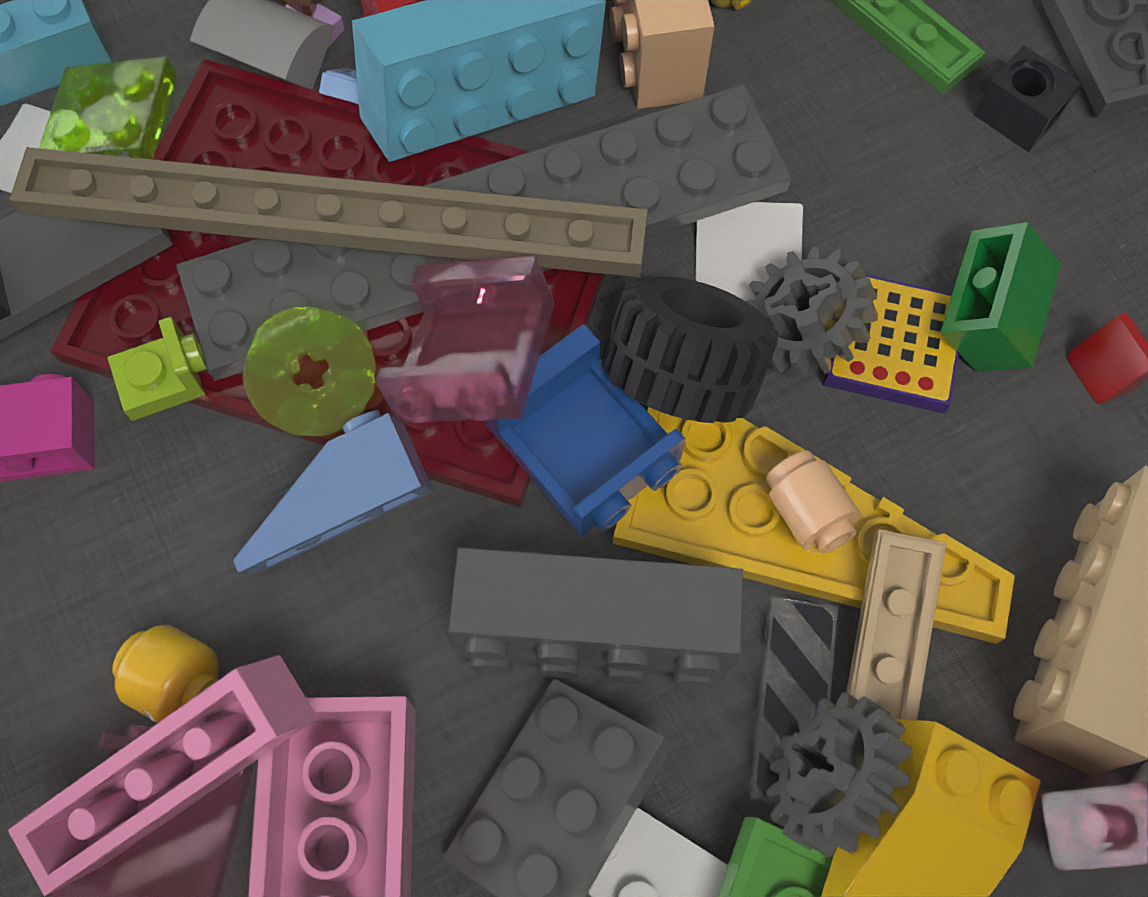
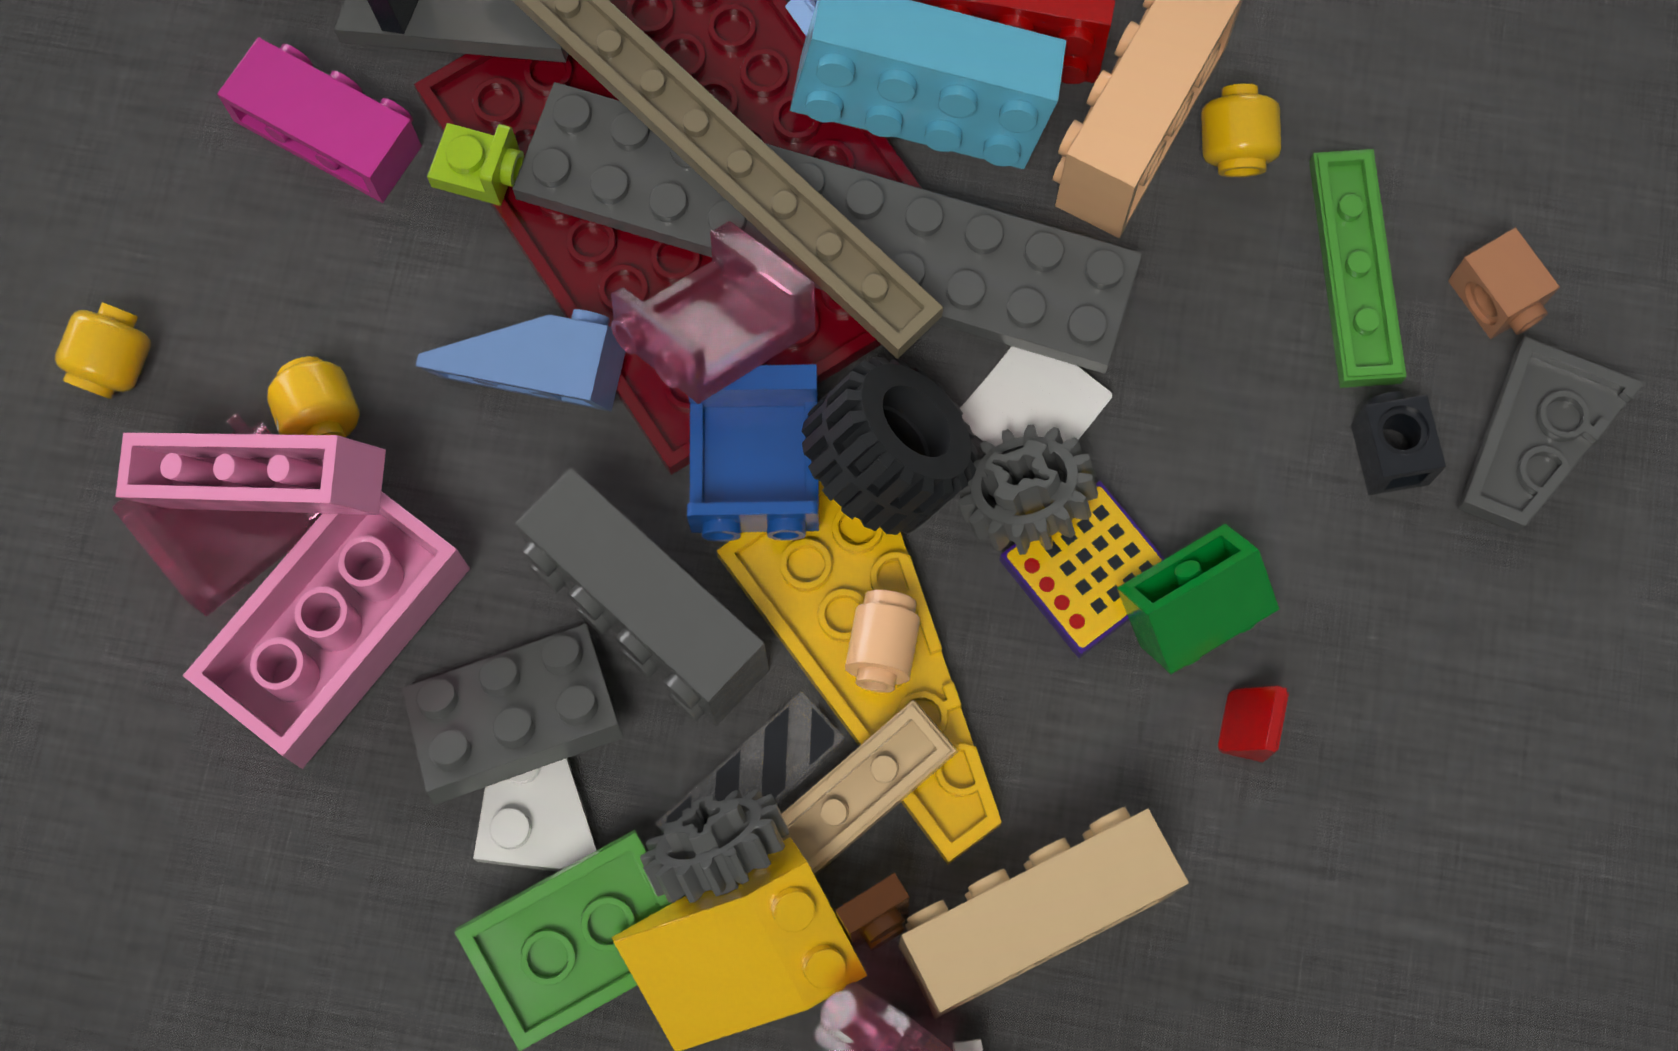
camera: 40 degrees right, 5 degrees up
(275, 358) = (561, 220): clear neon green plate -> none
(1006, 717) = (875, 914): none -> reddish brown plate

